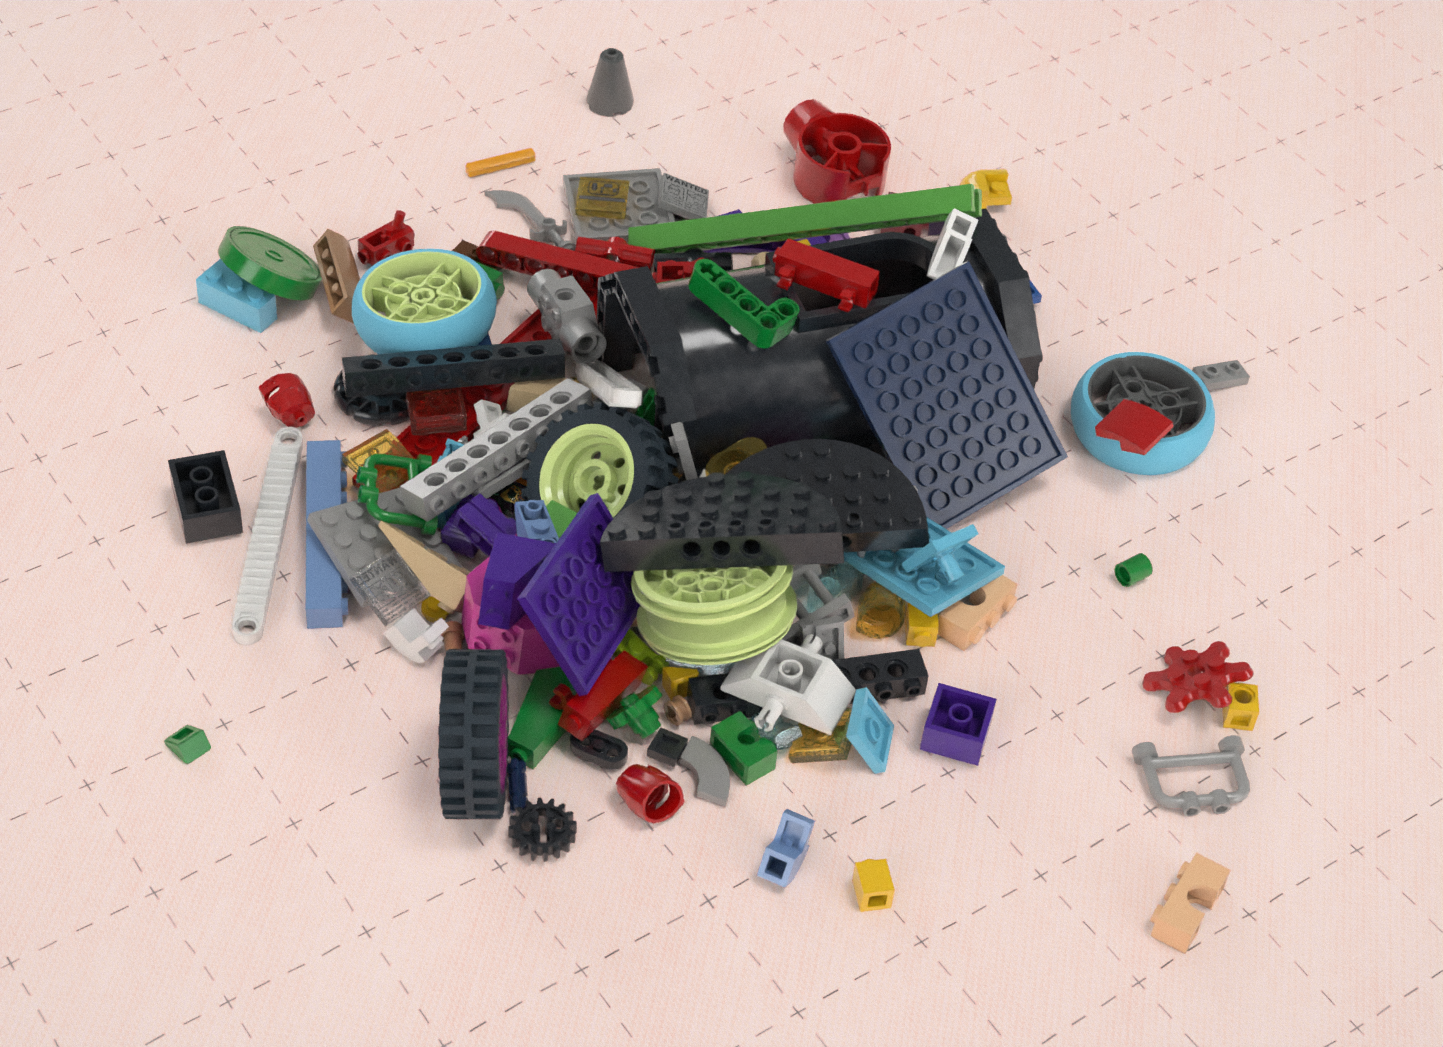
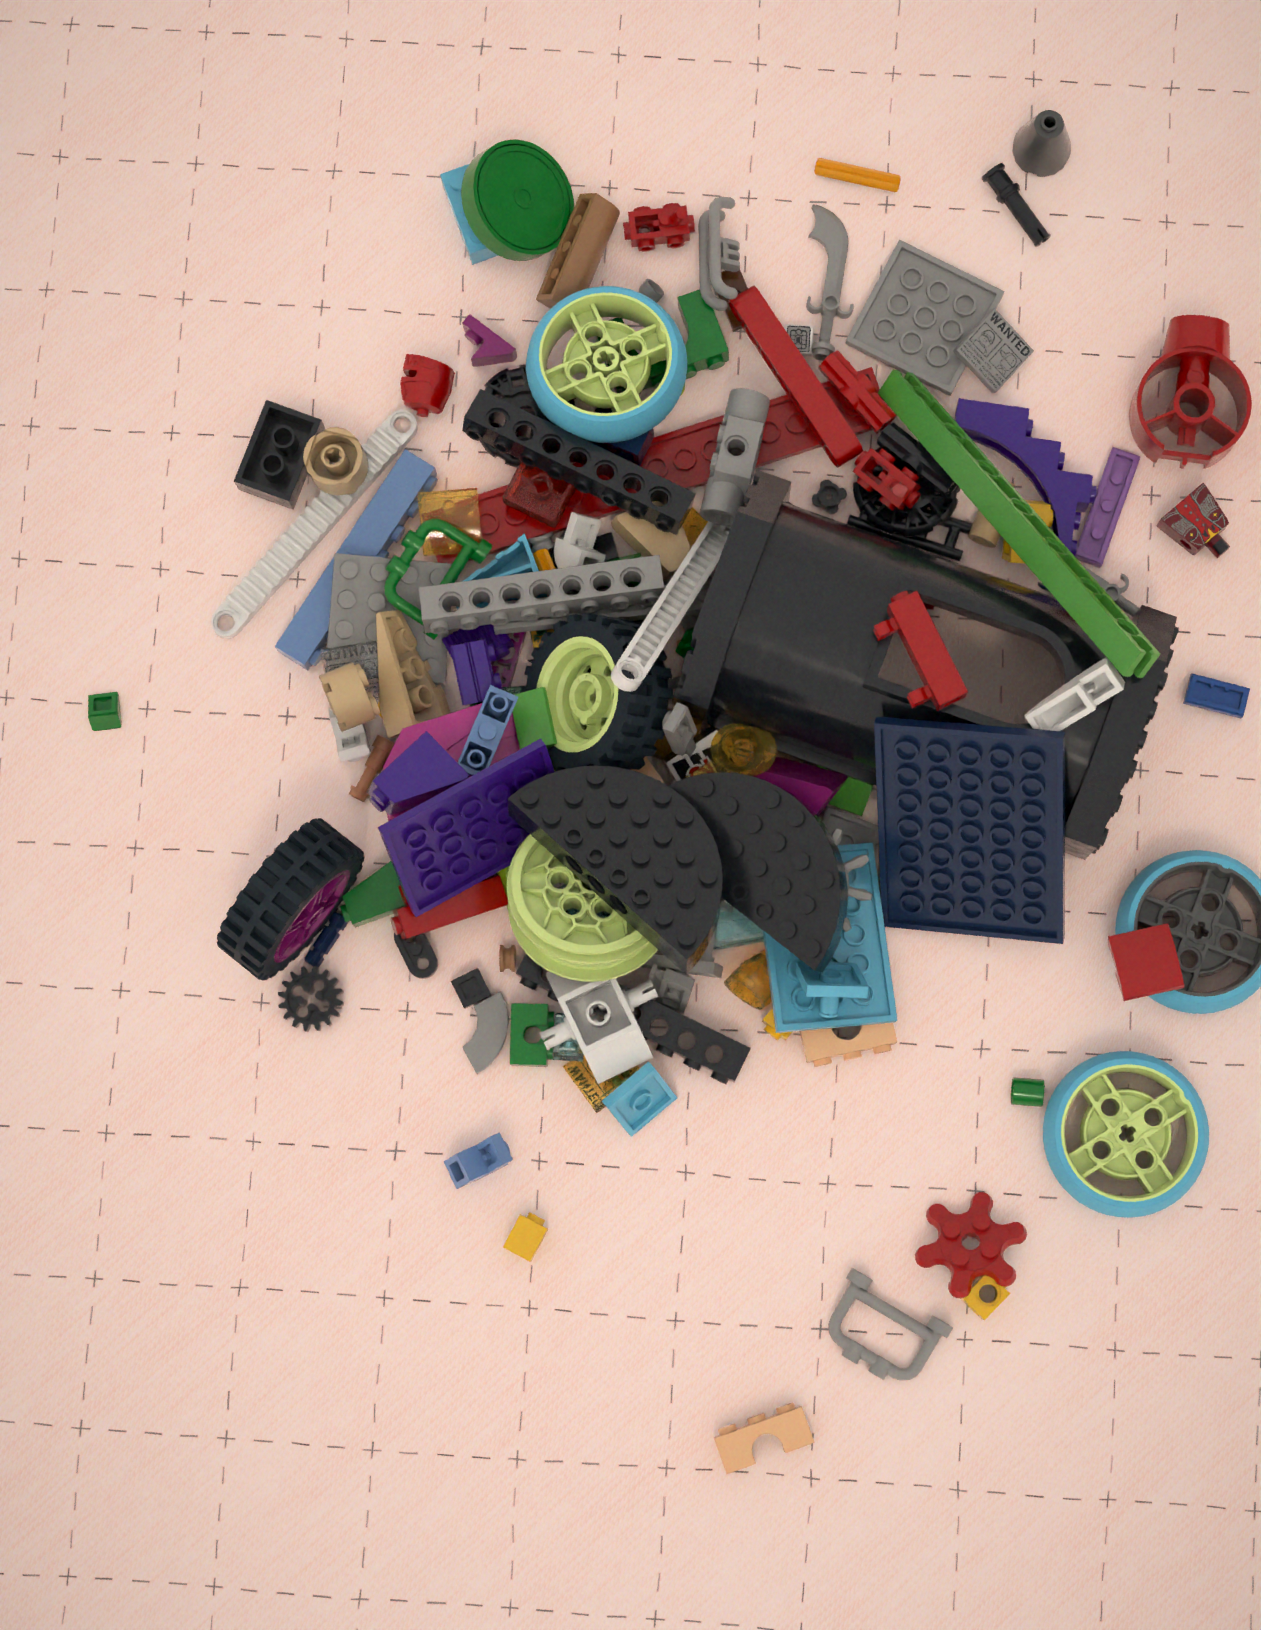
camera: 50 degrees right, 35 degrees up
(259, 467) = (329, 446): none -> tan brick
(320, 360) = (492, 349): none -> magenta slope
(402, 586) = (348, 696): none -> tan brick
(444, 228) = (716, 254): none -> light grey piece
(602, 198) = (909, 301): clear yellow tile -> none
(613, 125) = (1008, 193): none -> black pin
(638, 712) = (467, 940): green plant -> none
(644, 788) = (416, 1026): red helmet -> none
(740, 308) = (816, 629): green beam -> none
(958, 724) = (720, 1143): dark purple brick -> none
(1225, 548) = (1131, 1104): none -> yellowish green wheel

